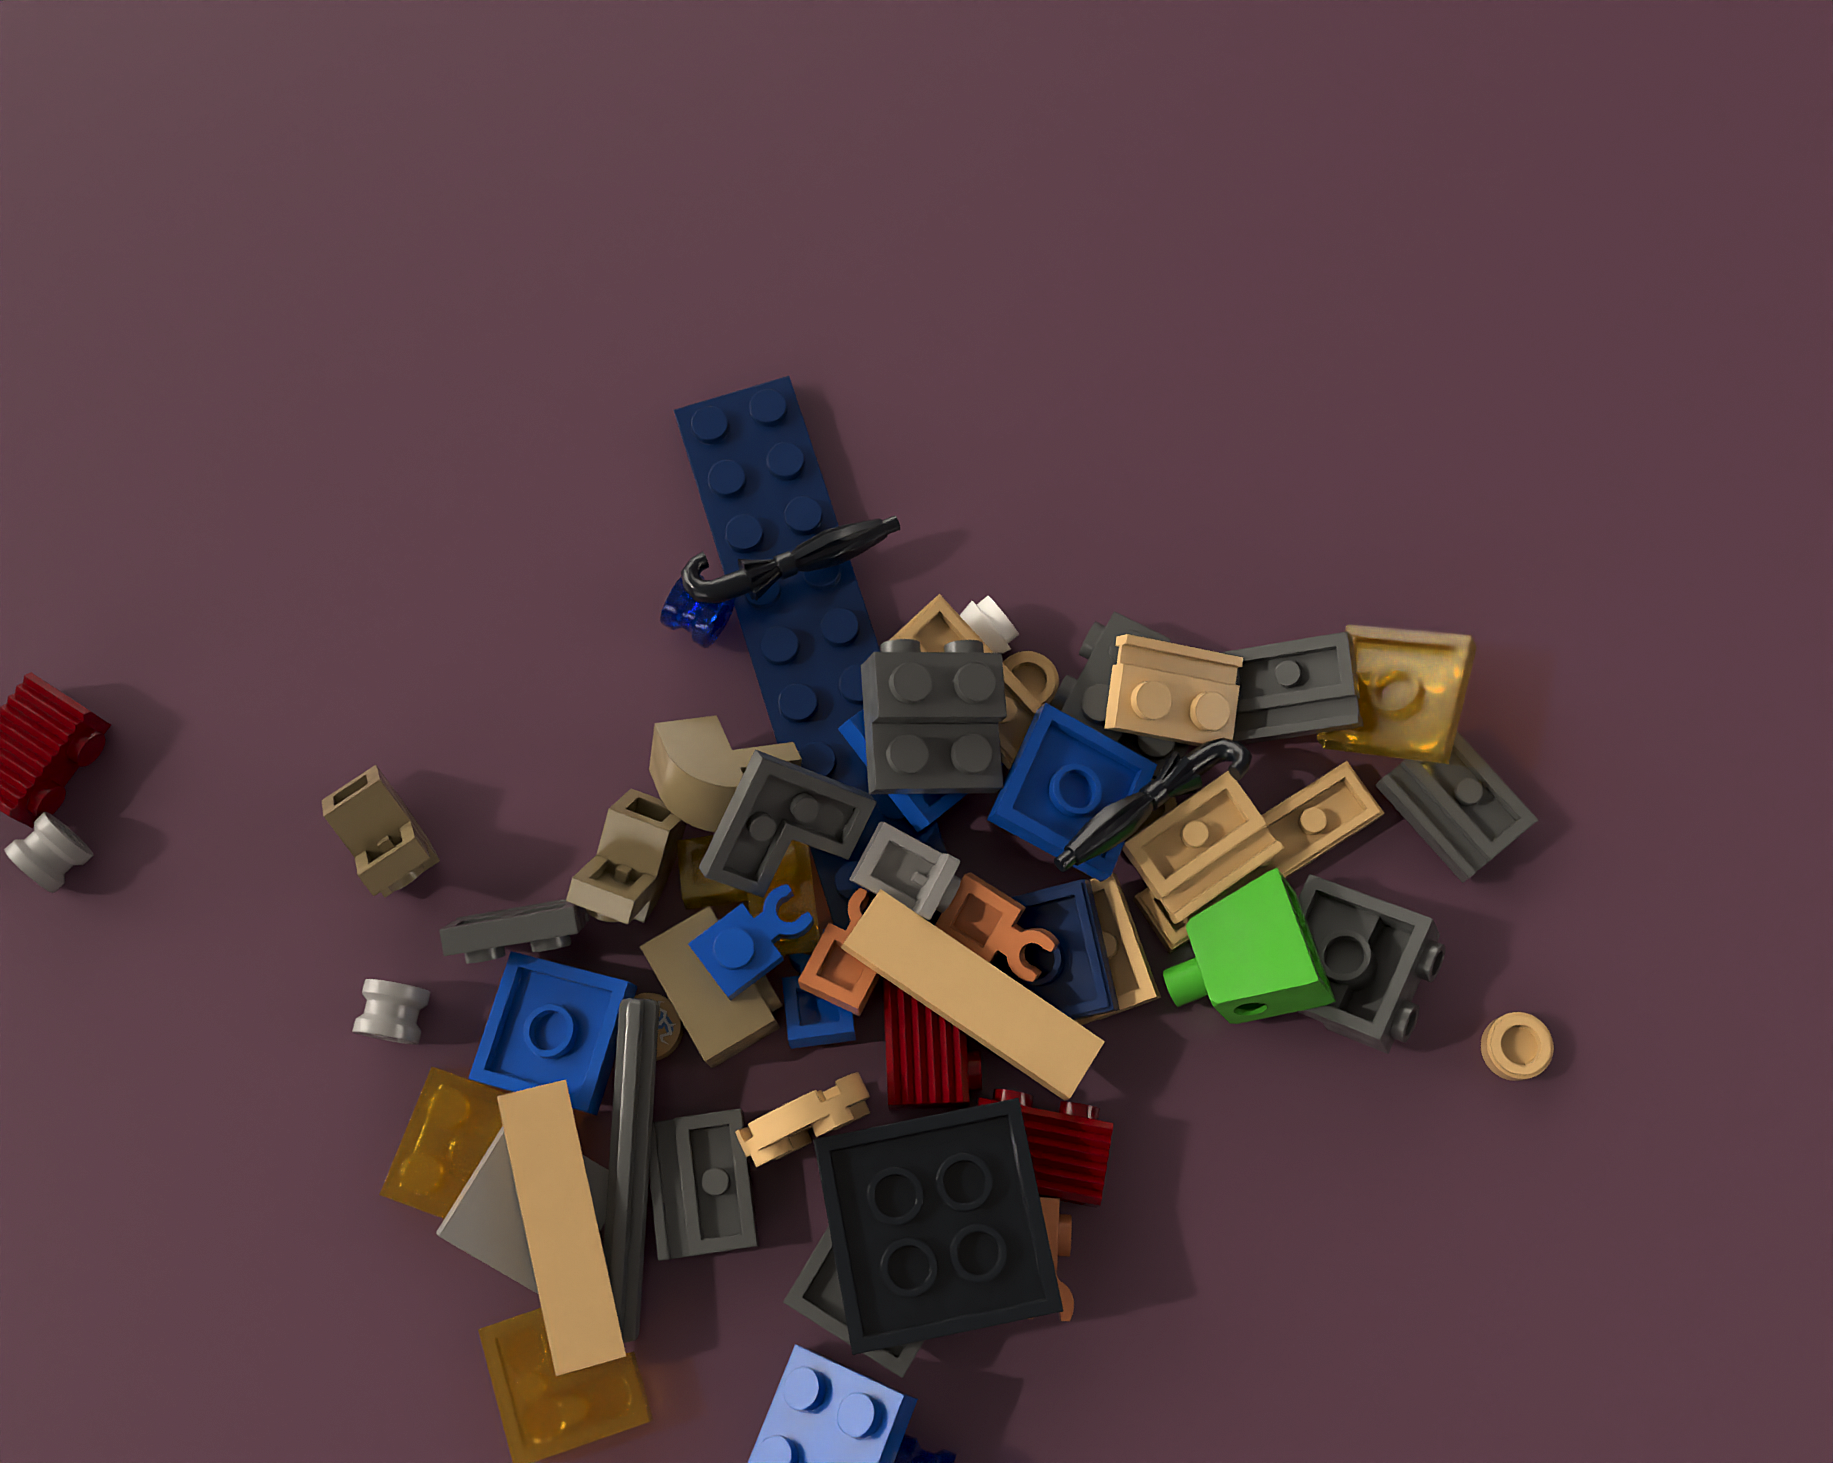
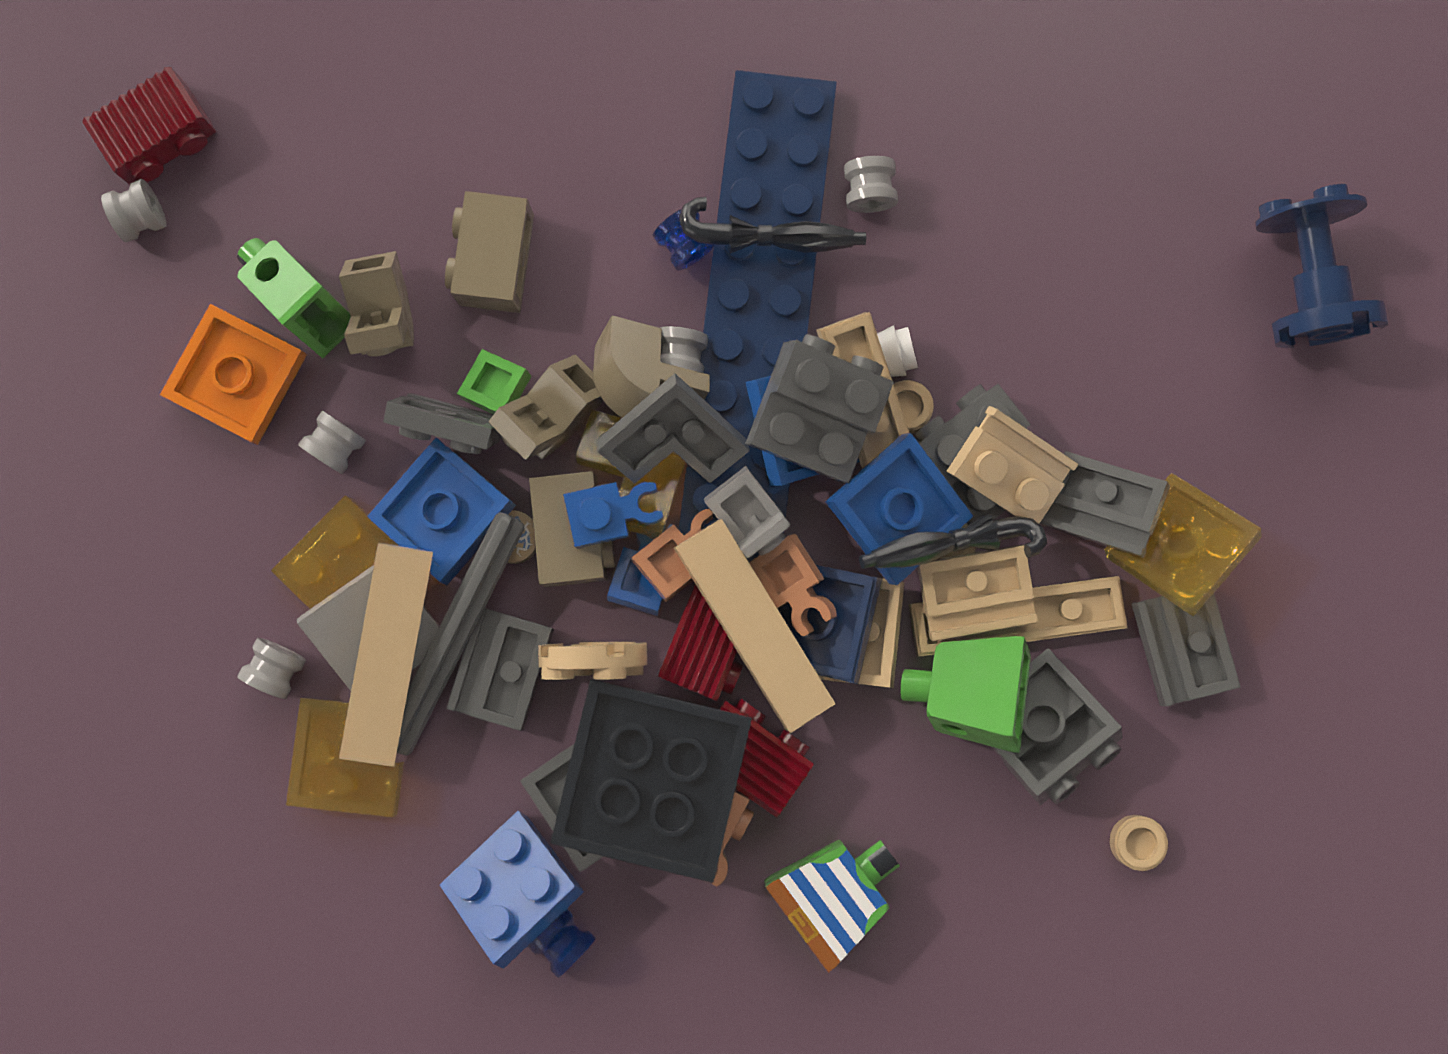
camera: 25 degrees right, 10 degrees up
(241, 986) = (233, 374): none -> orange plate
(267, 858) = (288, 291): none -> bright green torso
(428, 1310) = (271, 668): none -> light grey wheel
(485, 718) = (490, 251): none -> dark tan brick
(550, 860) = (493, 382): none -> bright green plate
(750, 724) = (683, 347): none -> light grey wheel
(876, 464) = (871, 184): none -> light grey wheel
(1209, 1270) = (833, 897): none -> torso
(1407, 363) = (1324, 288): none -> dark blue piece

